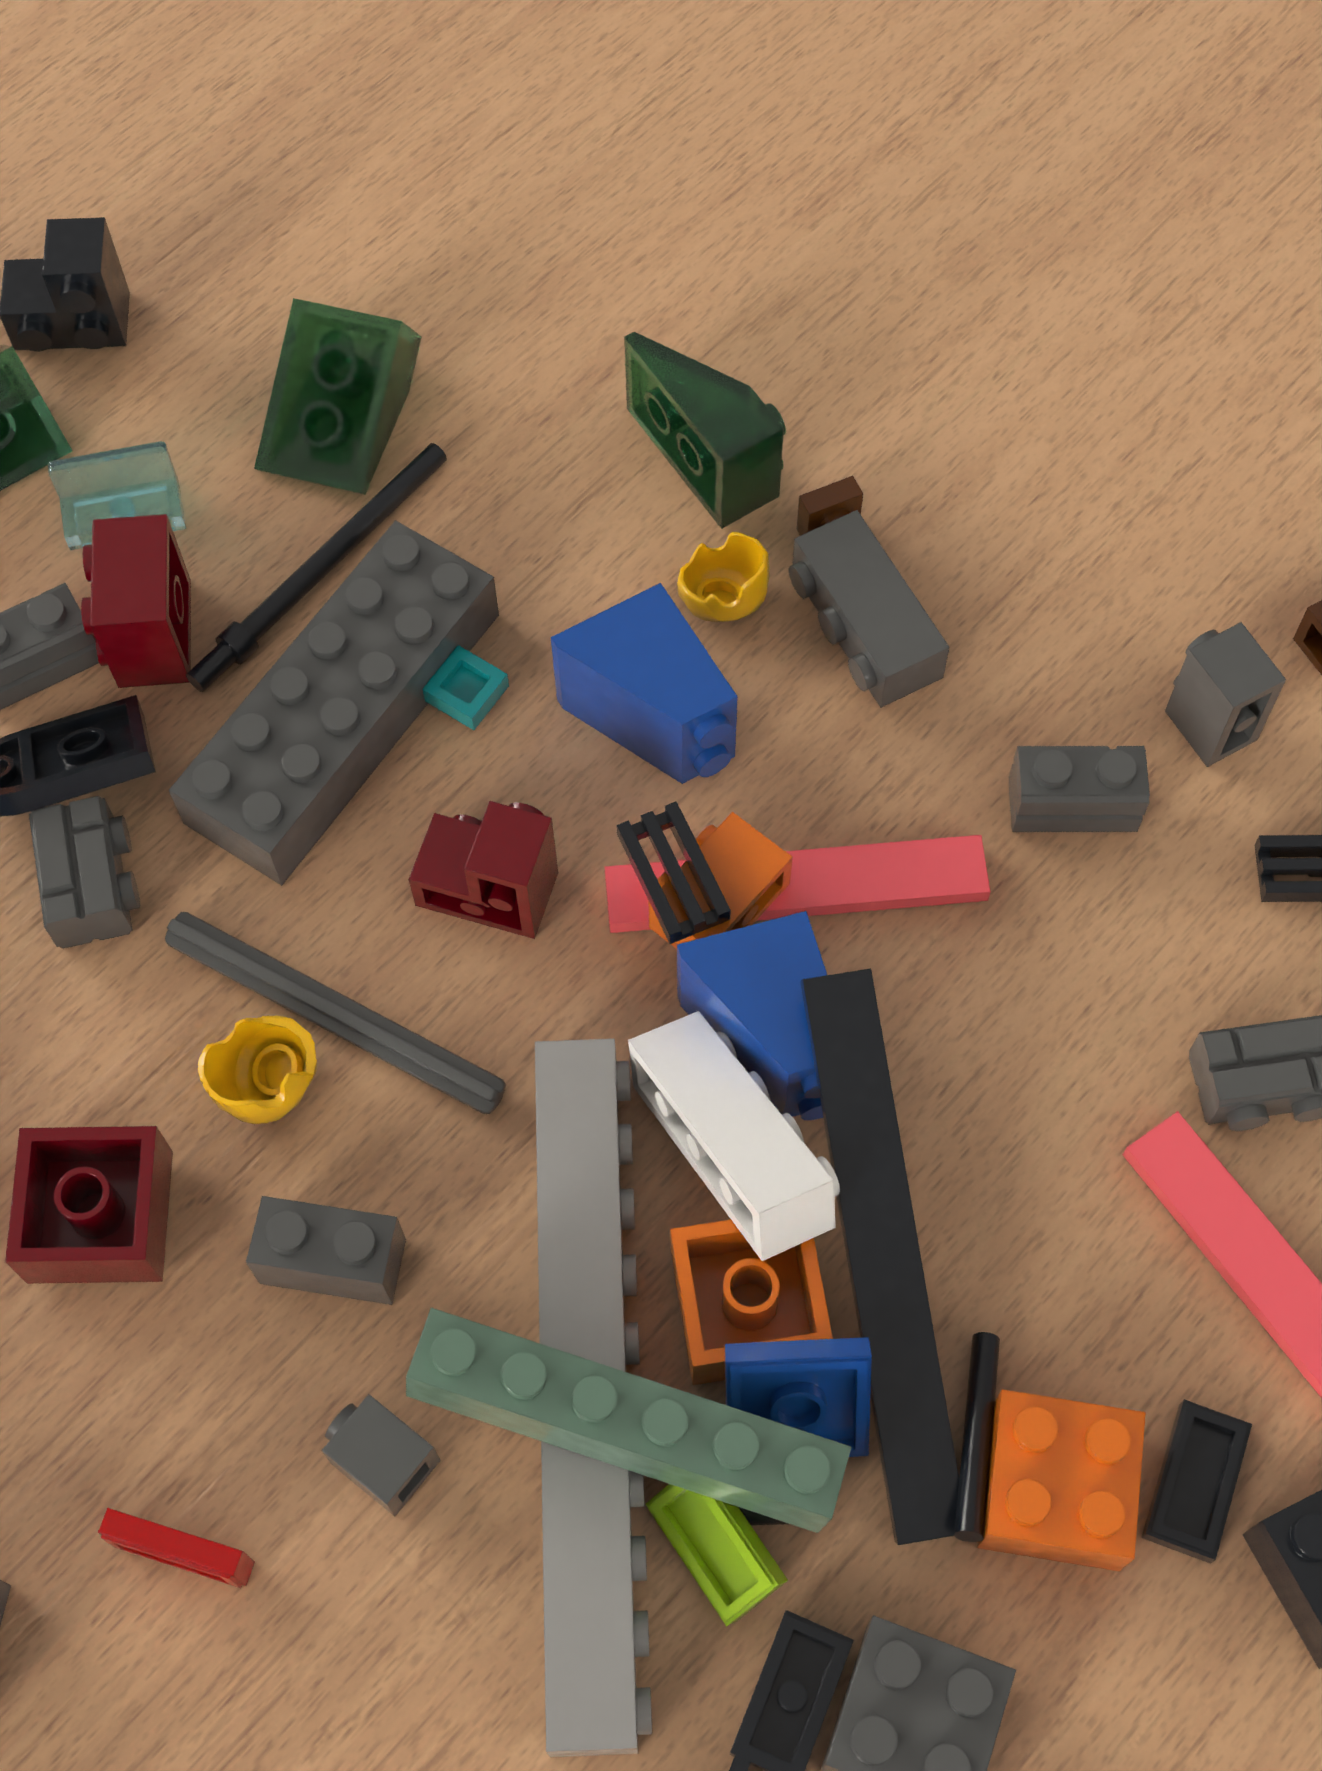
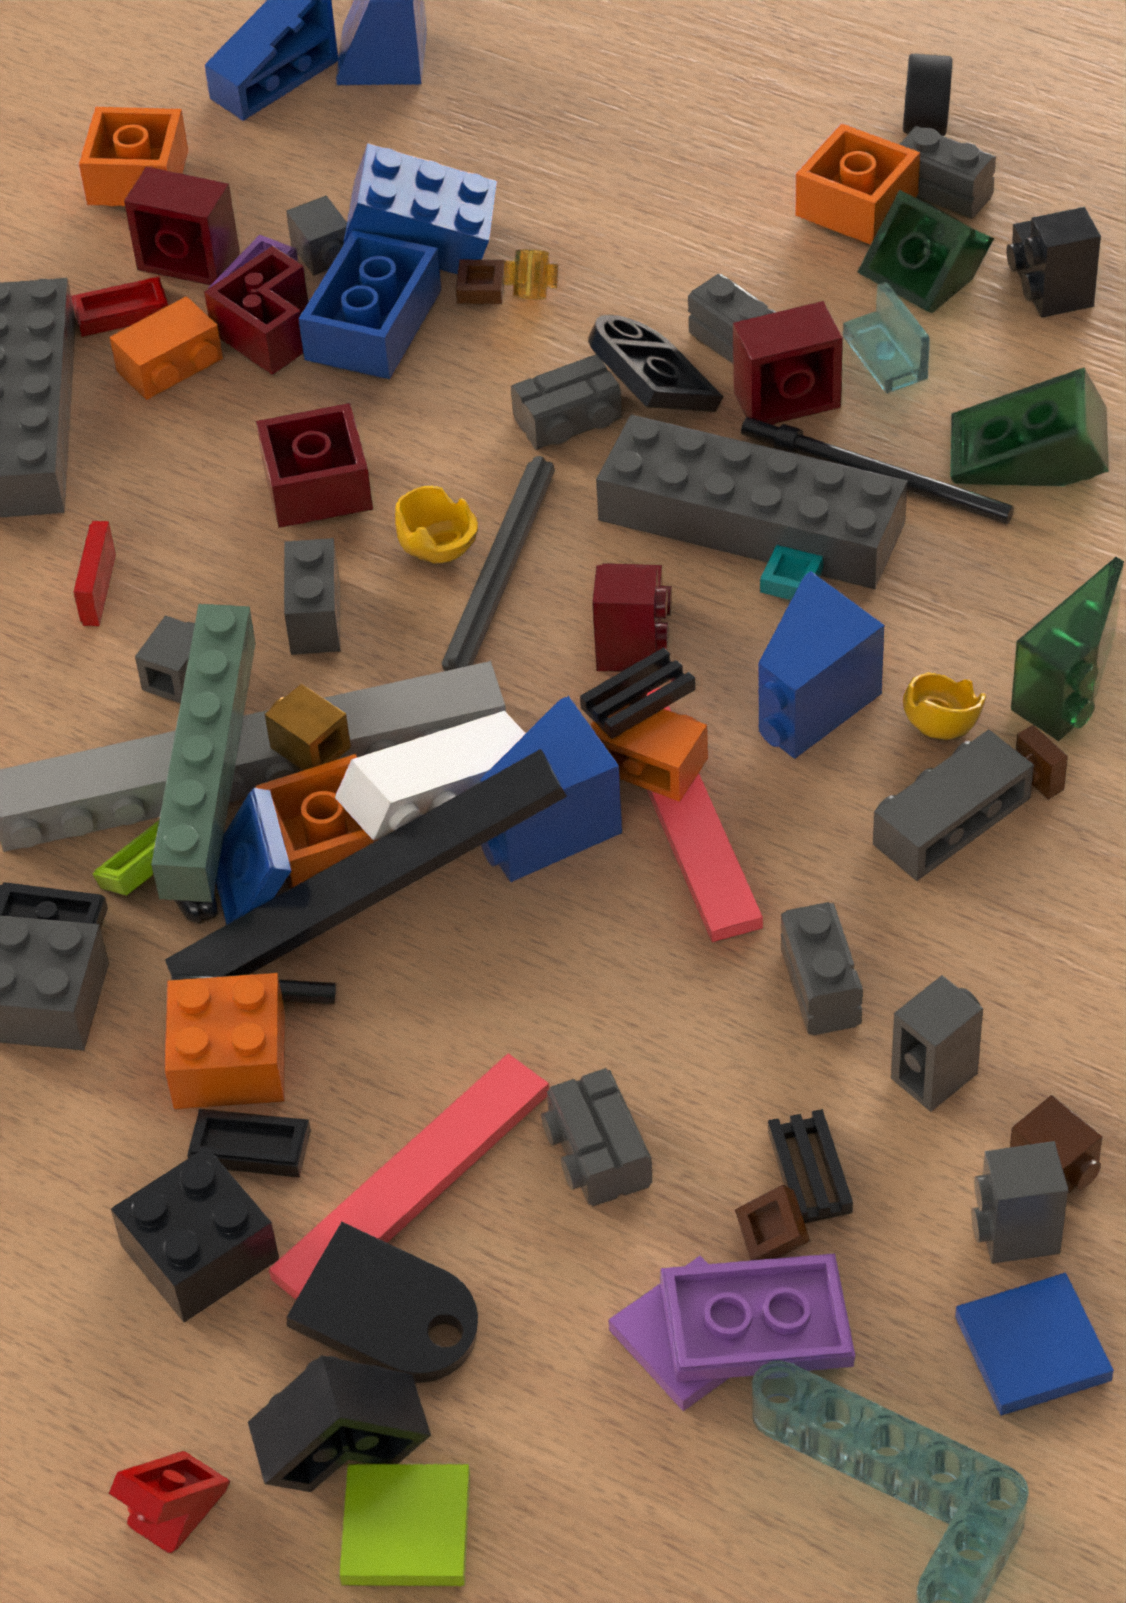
camera: 80 degrees right, 15 degrees down
(618, 1282) = (307, 729): none -> pearl gold brick

